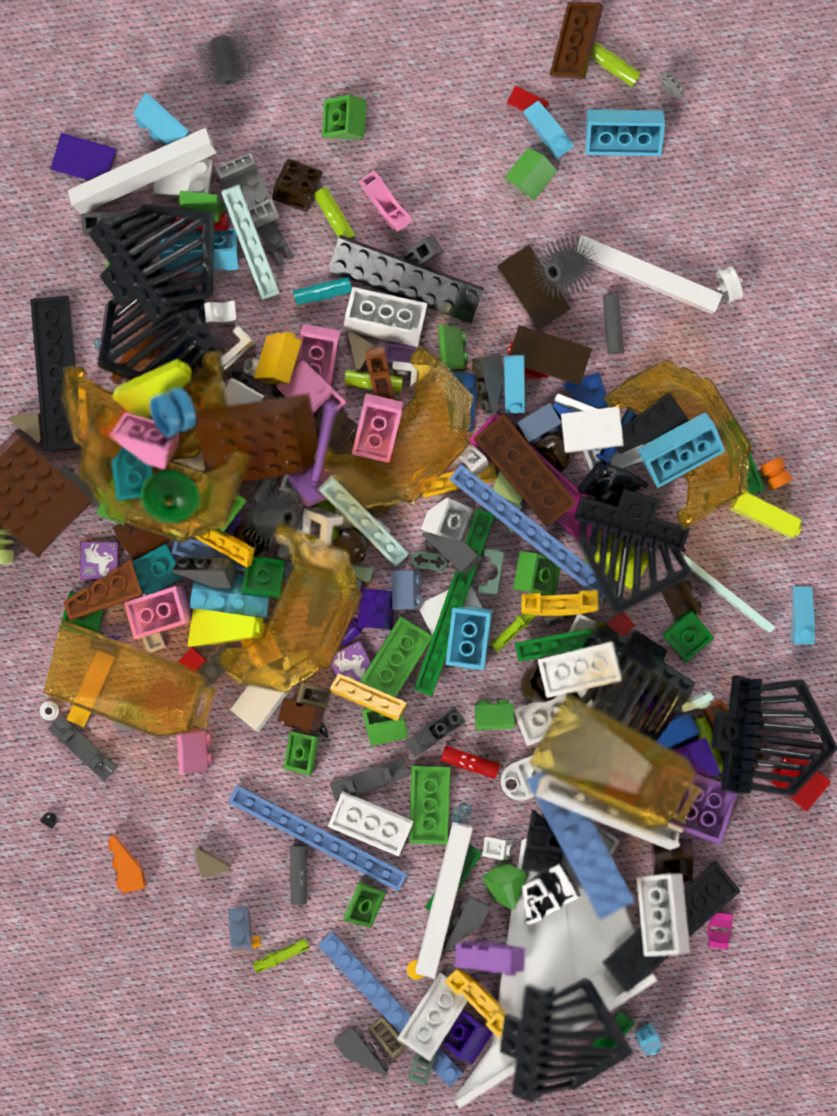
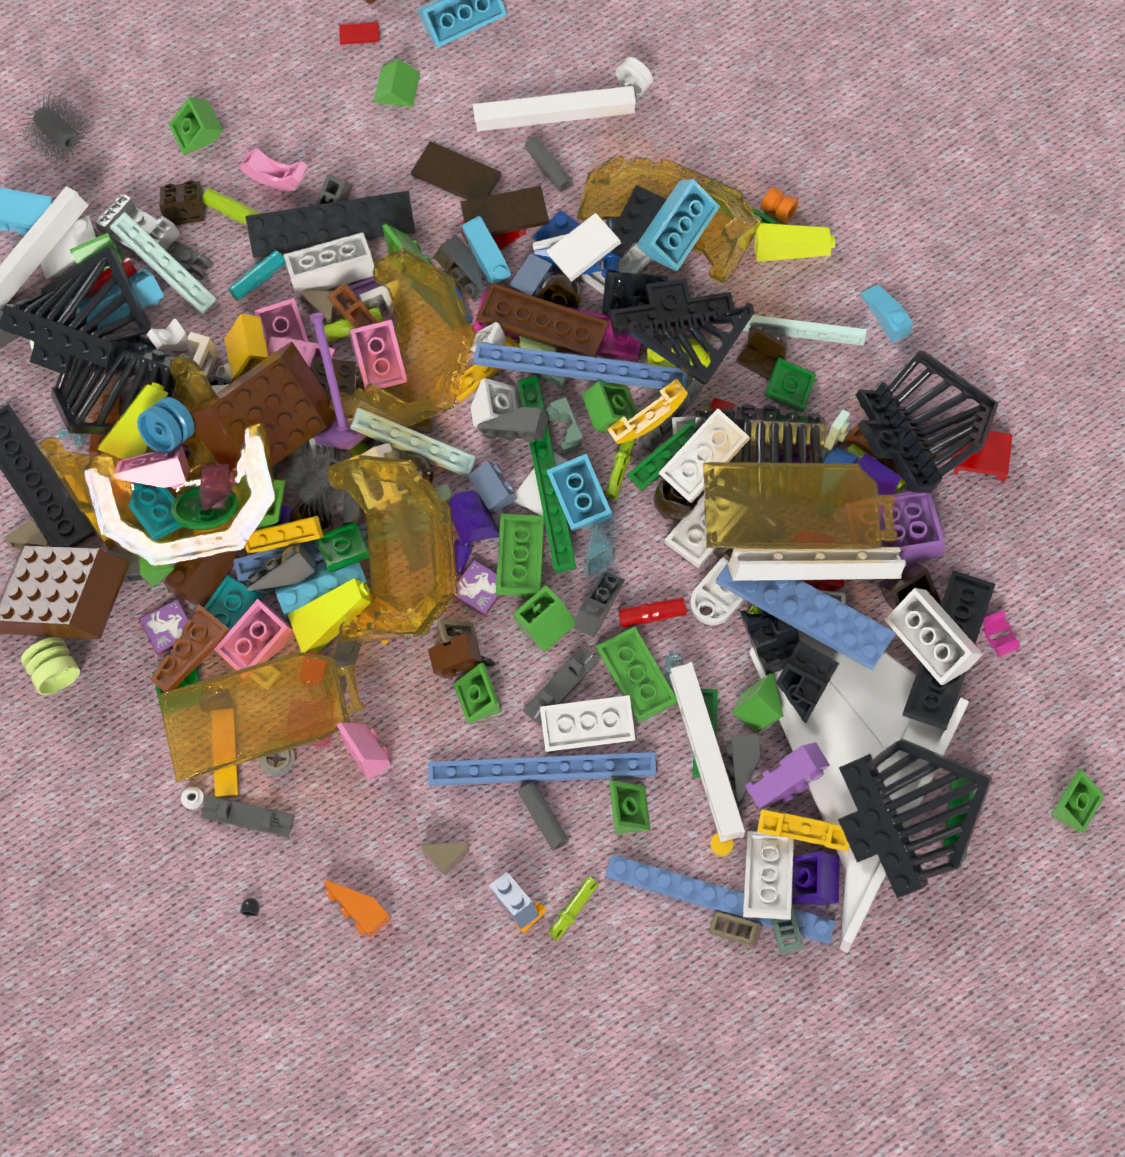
camera: 25 degrees left, 20 degrees down
(187, 482) = (215, 484): none -> clear pink slope
(257, 705) = (405, 666): white tile -> none
(357, 1050) = (710, 958): dark grey slope -> none
(368, 697) = (512, 599): yellow tile -> none
(428, 566) = (497, 448): sand green beam -> none
(456, 694) = (599, 553): none -> clear light blue slope
(494, 715) = (650, 554): bright green slope -> none
(498, 848) = (730, 677): white bracket -> none
(548, 130) = (392, 41): medium azure slope -> none
(565, 266) = (473, 130): dark grey piece -> none
(648, 1039) = (1003, 771): medium azure slope -> none
(692, 1089) = (1079, 802): none -> bright green slope

